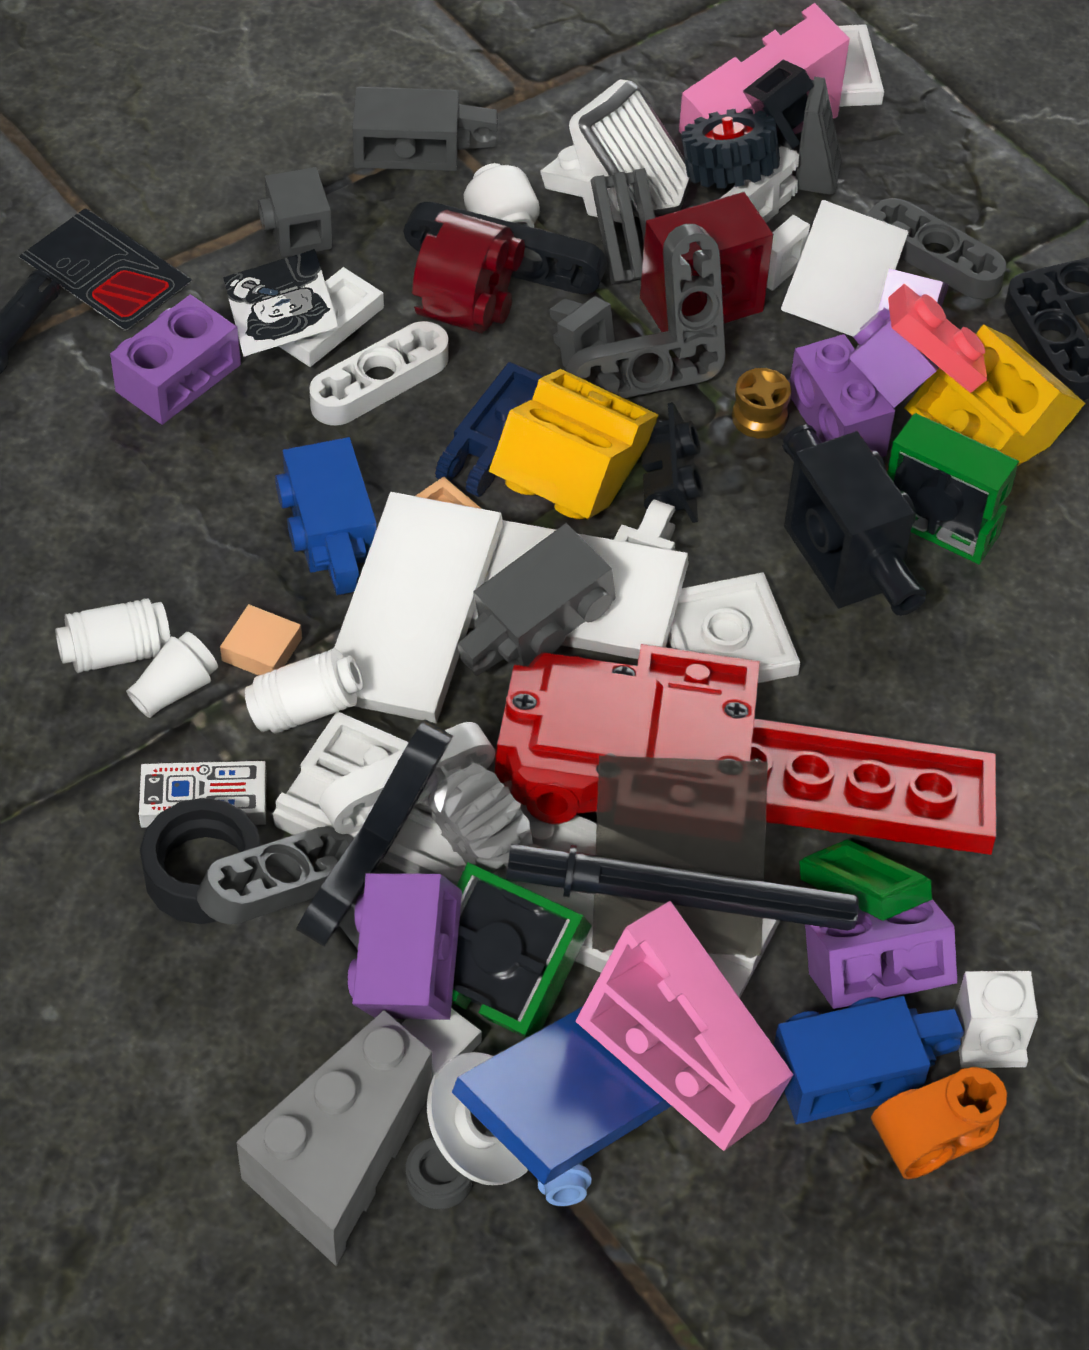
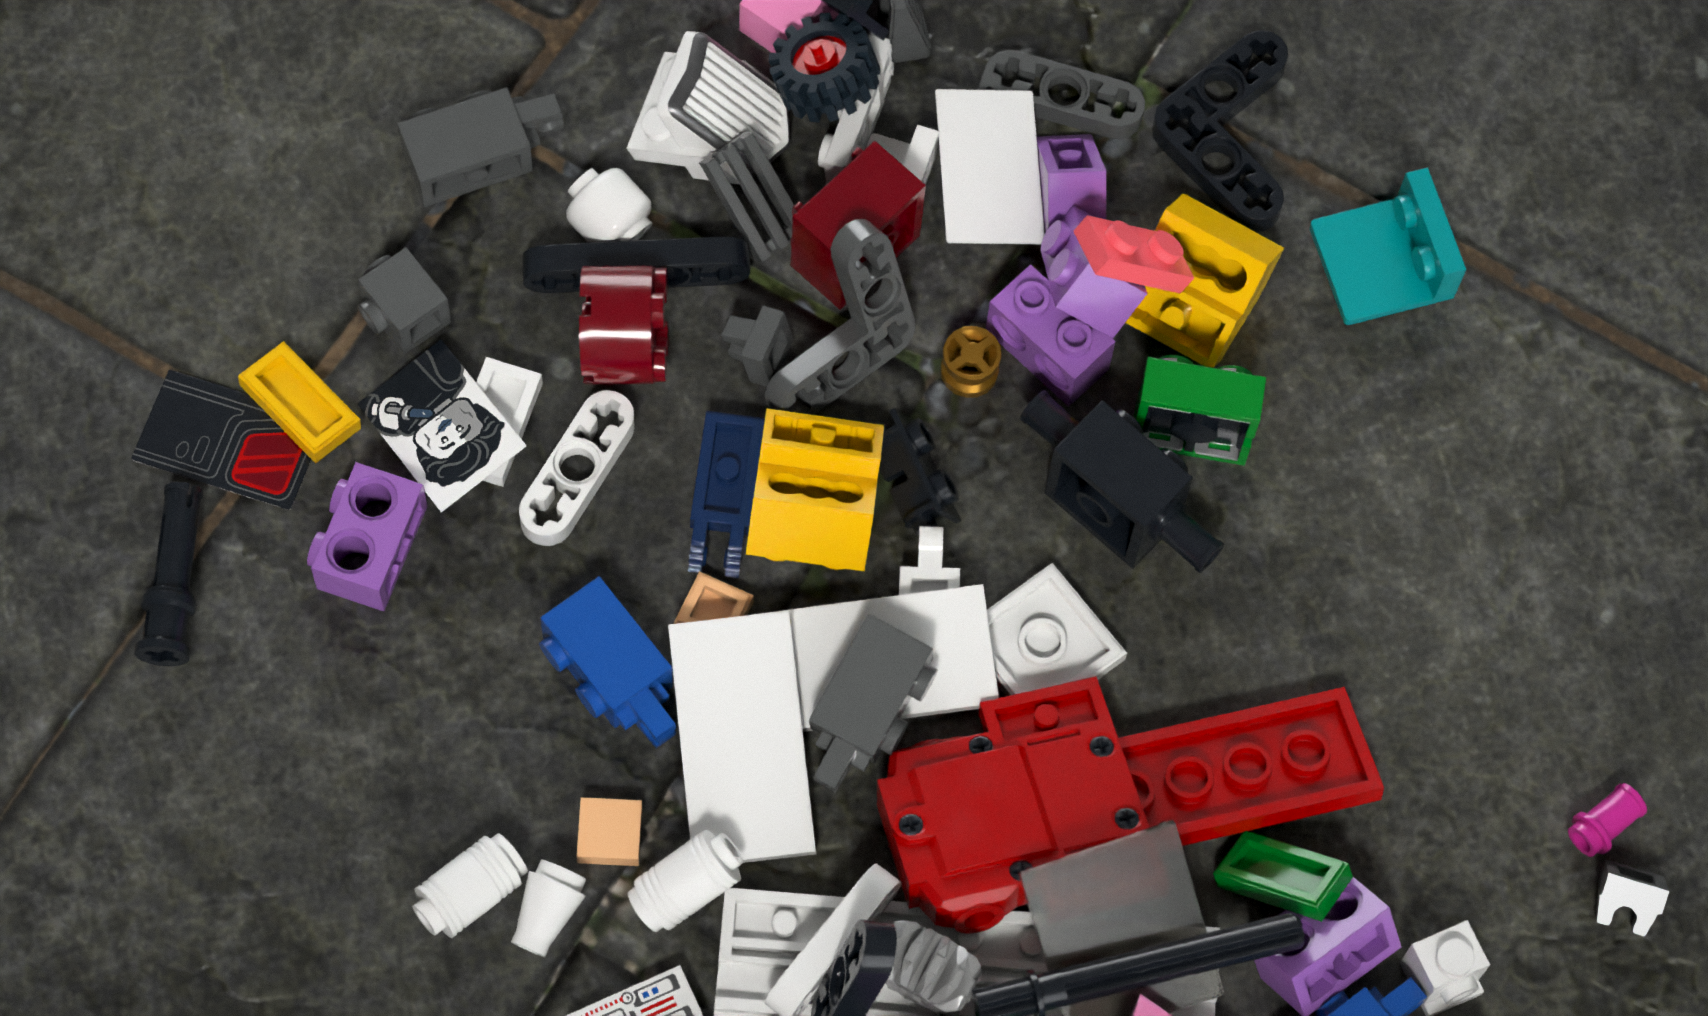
camera: 25 degrees left, 15 degrees up
(175, 257) = (299, 402): none -> yellow tile

